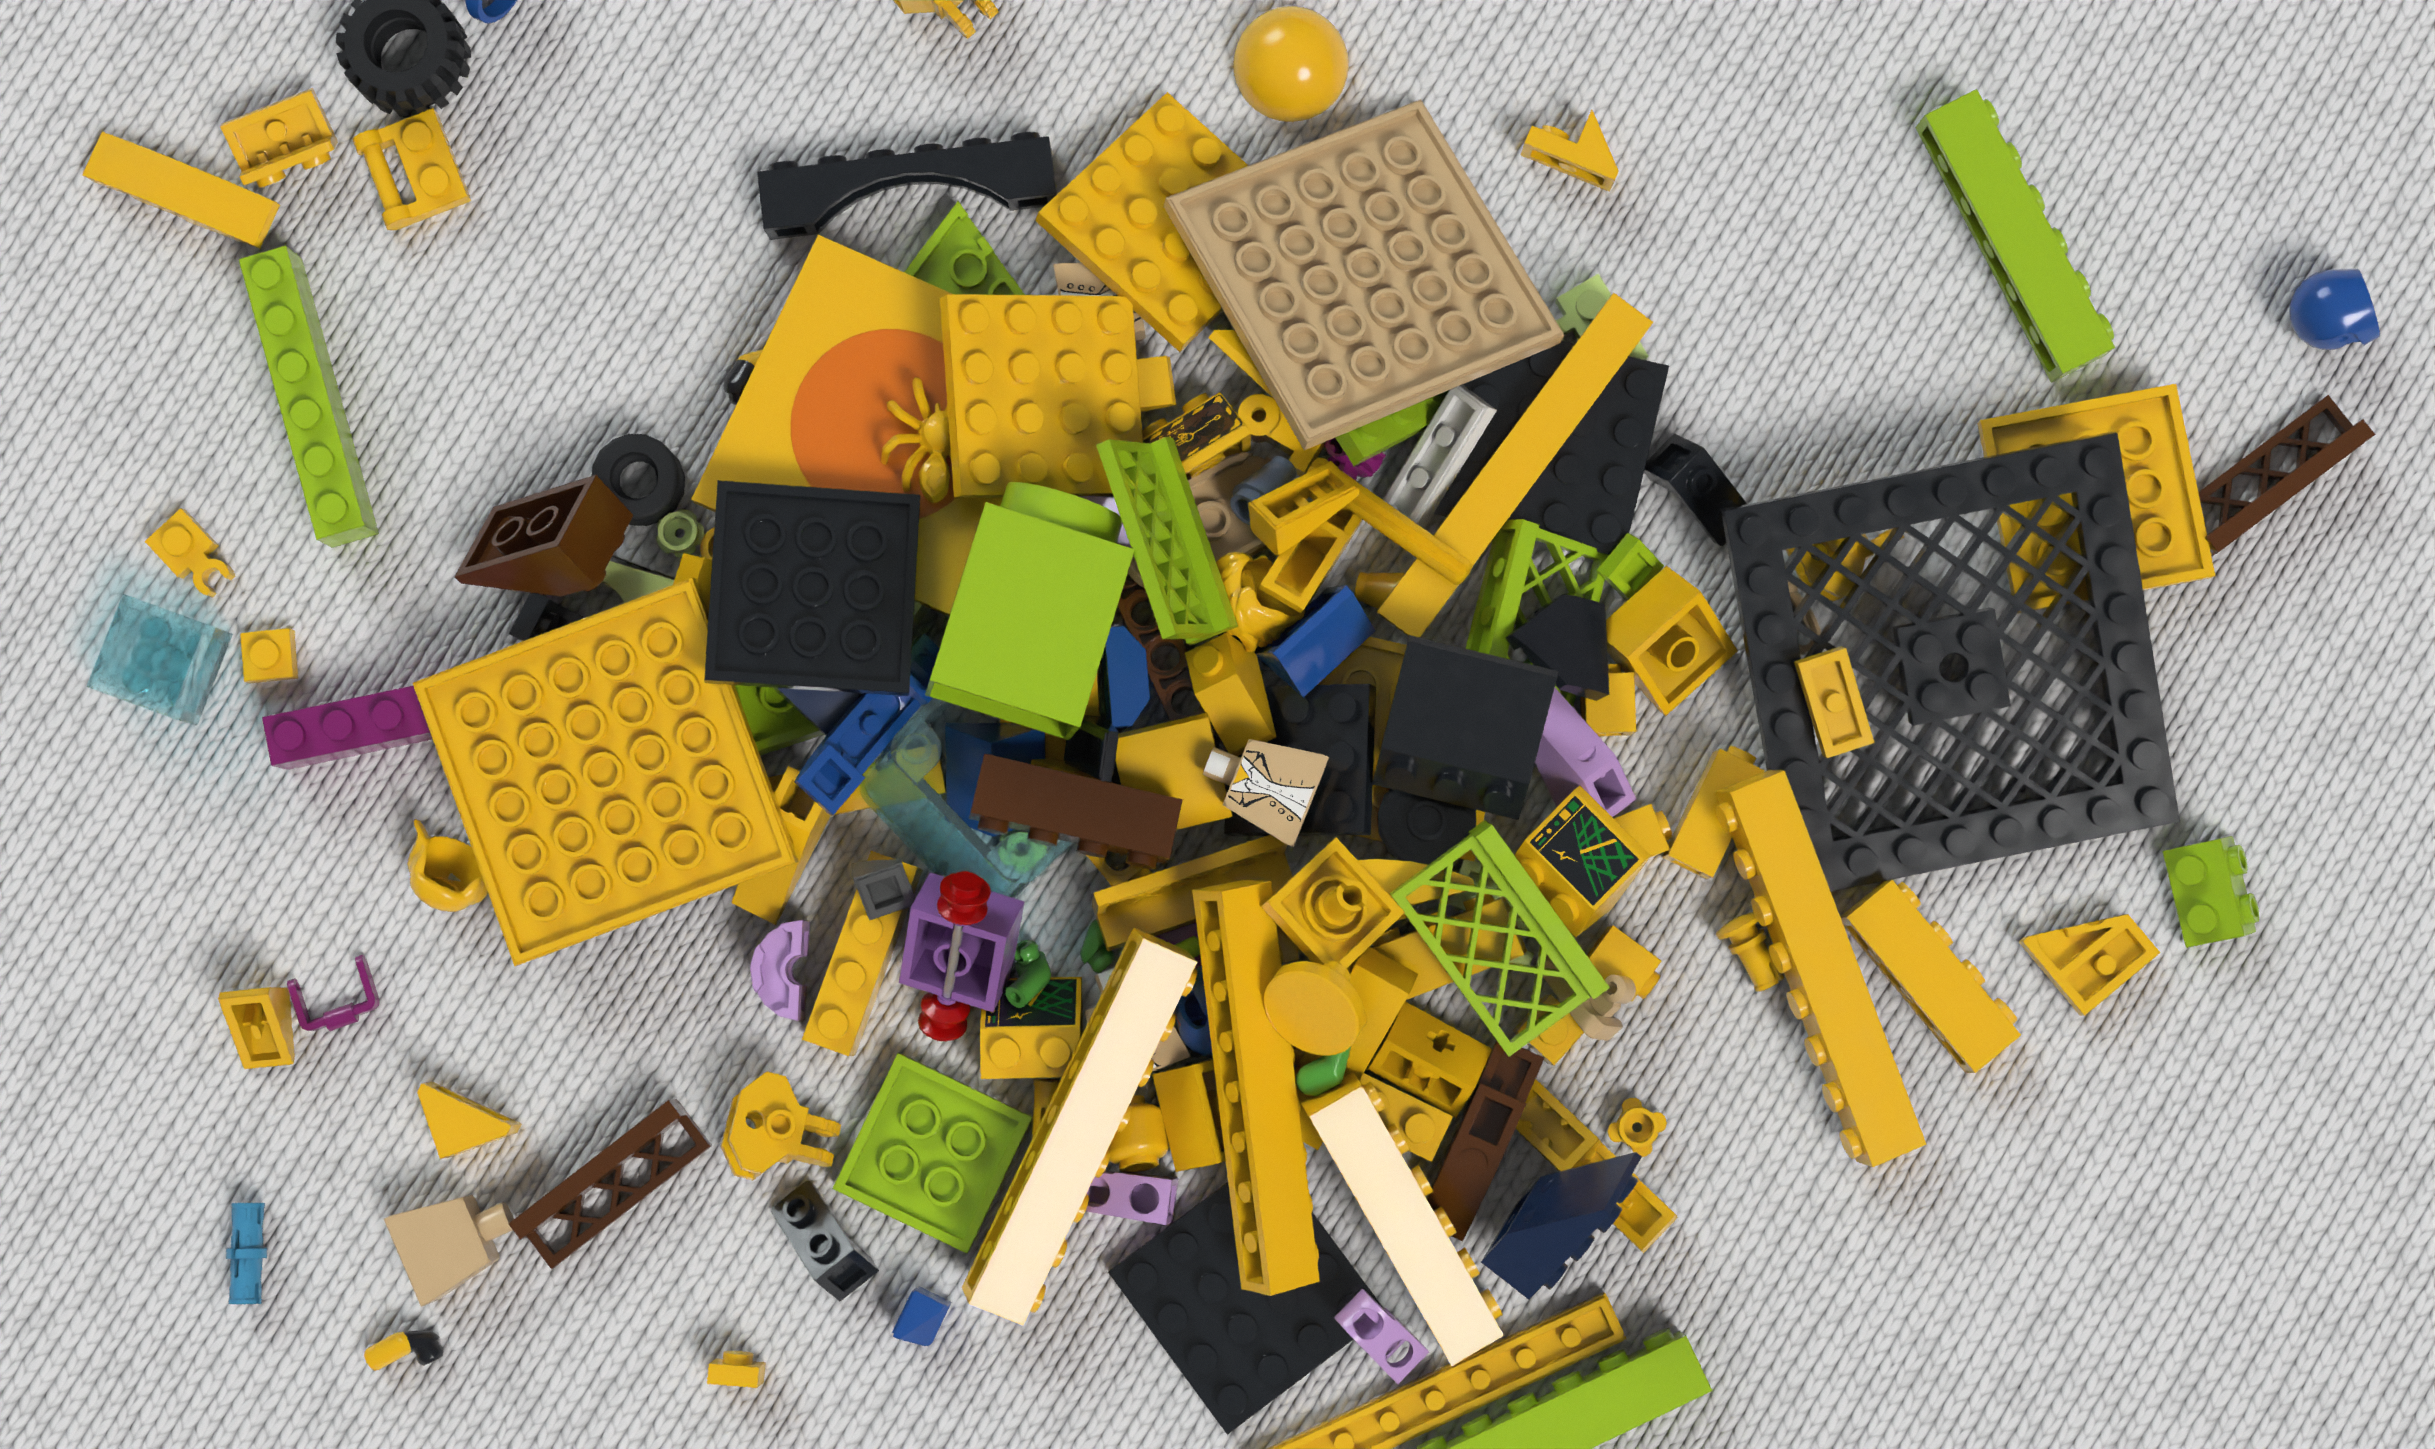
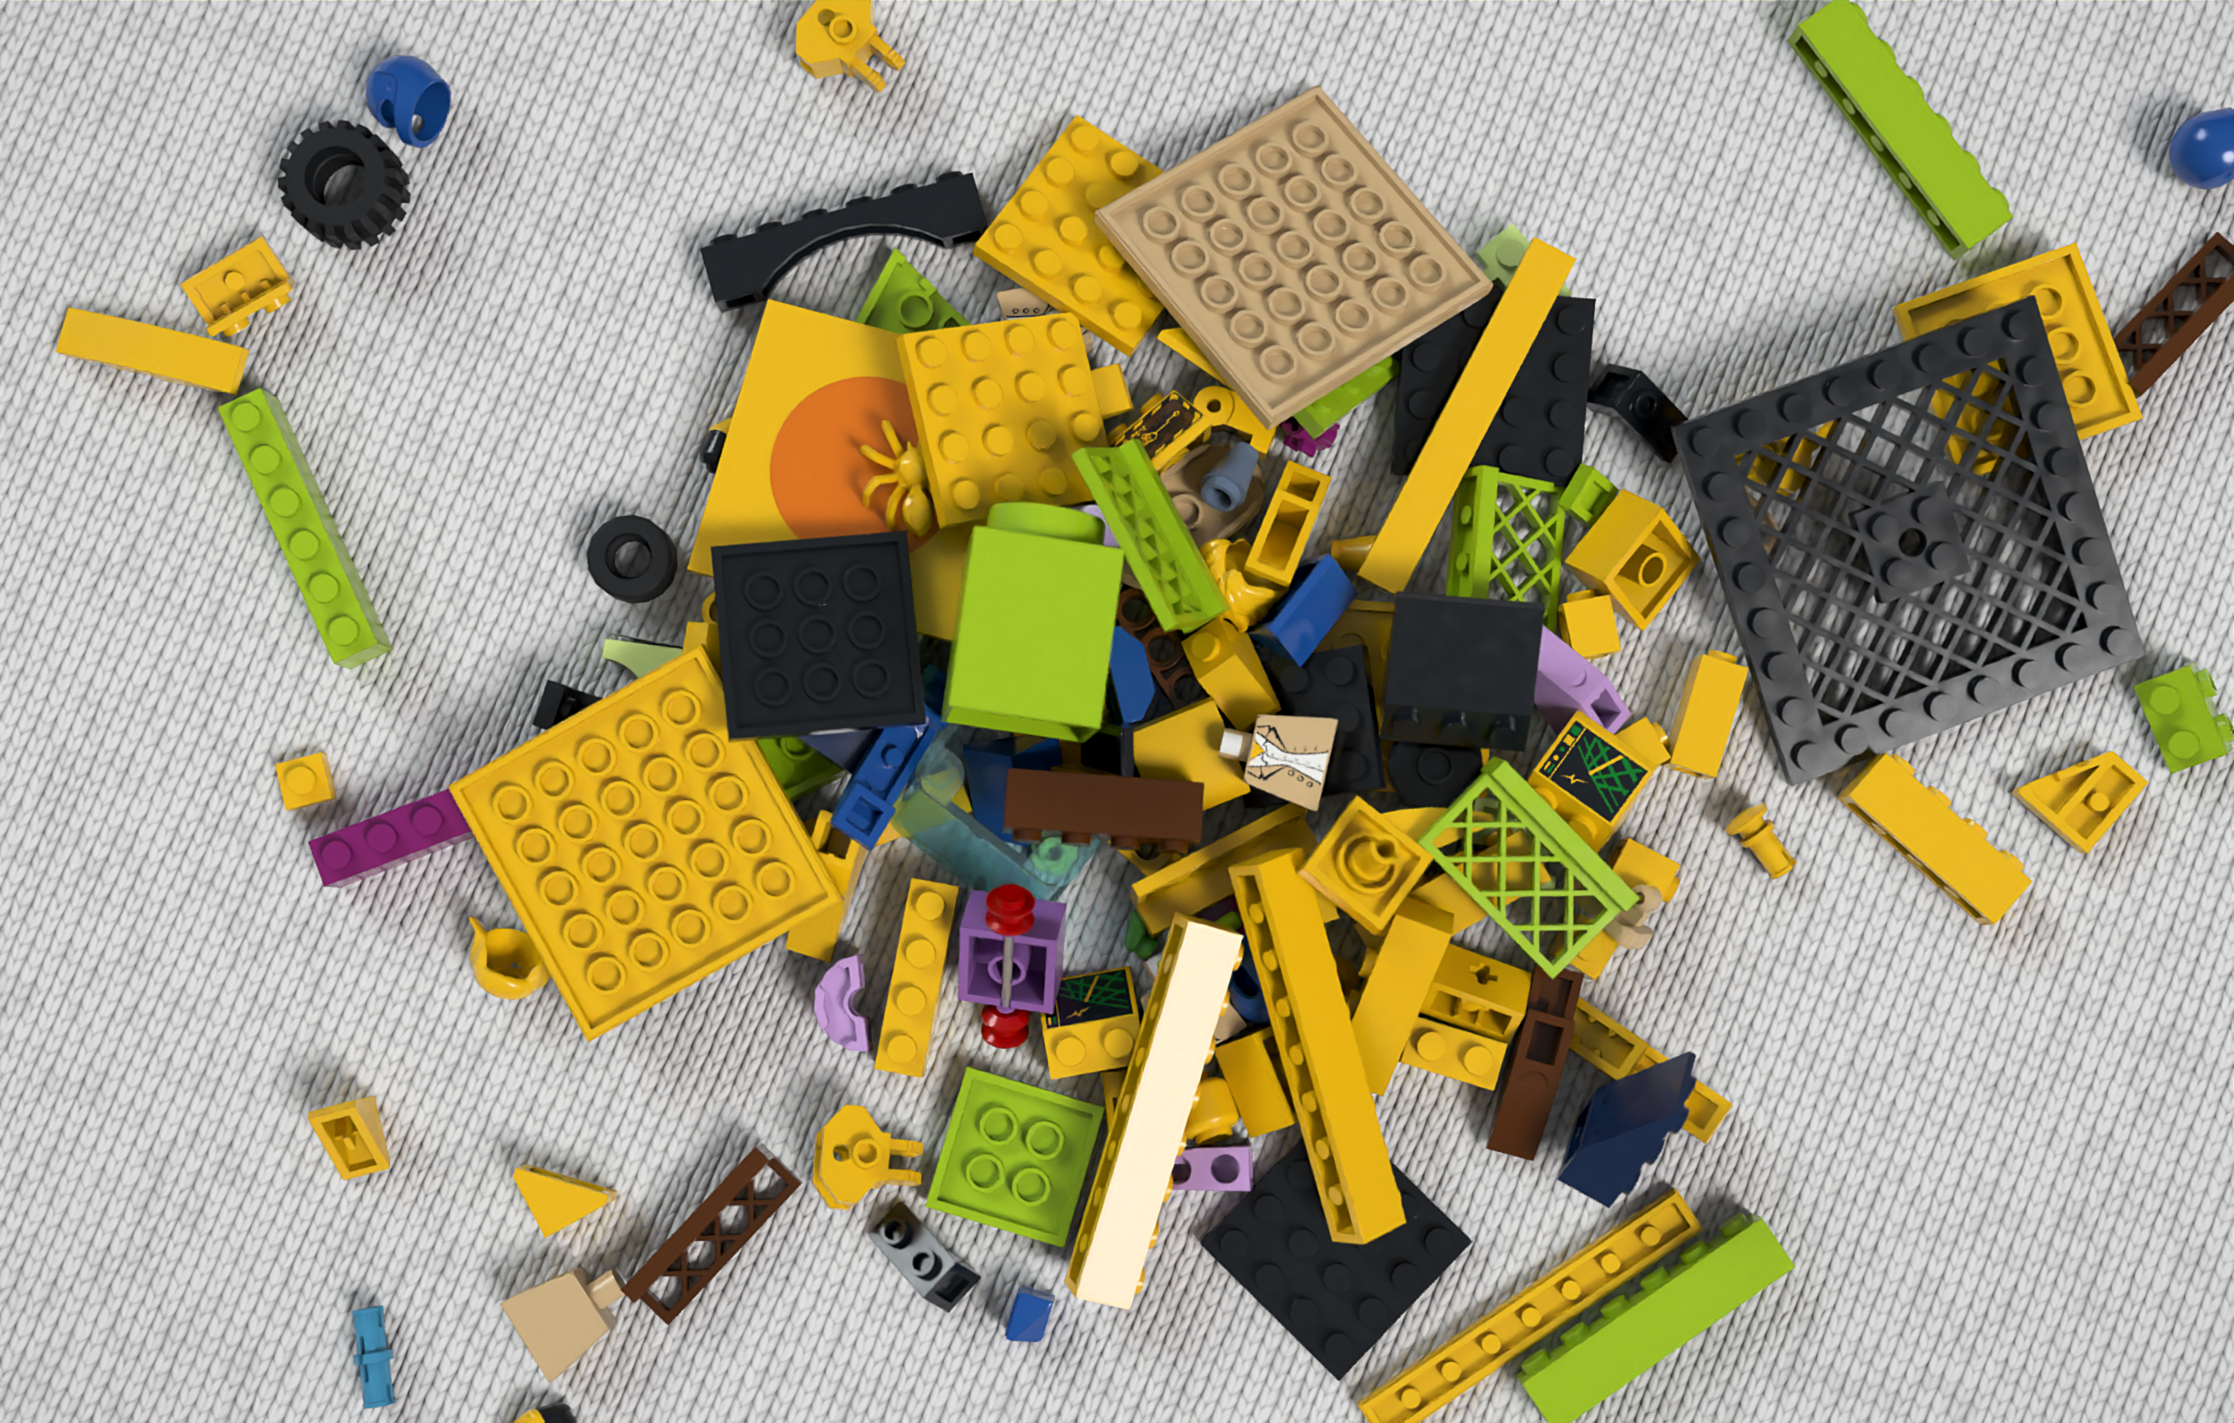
camera: 10 degrees left, 0 degrees up
(159, 660) = (201, 802): clear light blue brick -> none
(186, 548) = (211, 691): yellow plate -> none
(342, 1015) = (428, 1115): magenta piece -> none
(427, 163) = (383, 290): yellow plate -> none
(549, 540) = (556, 630): reddish brown slope -> none
(667, 530) = (679, 591): yellowish green plate -> none
(736, 1370) = (860, 1394): yellow plate -> none
(882, 886) = (929, 910): dark grey slope -> none
(1032, 974) = (1082, 969): bright green arm -> none
(1281, 529) = (1257, 510): yellow slope -> none
(1291, 64) = (1189, 70): yellow piece -> none
(1315, 1007) = (1364, 961): yellow tile -> none
(1322, 1074) = (1384, 1019): bright green arm -> none
(1380, 1335) = (1470, 1262): lavender leg -> none
(1403, 1218) = (1475, 1148): brick -> none
(1405, 532) = (1355, 487): yellow axle -> none
(1439, 454) = (1390, 421): white tile -> none
(1571, 639) = (1544, 571): black slope -> none
(1586, 160) = (1482, 118): yellow slope -> none
(1651, 1125) = (1693, 1022): yellow plate -> none
(1819, 968) = (1831, 848): yellow brick -> none
(1834, 702) = (1806, 592): yellow plate -> none

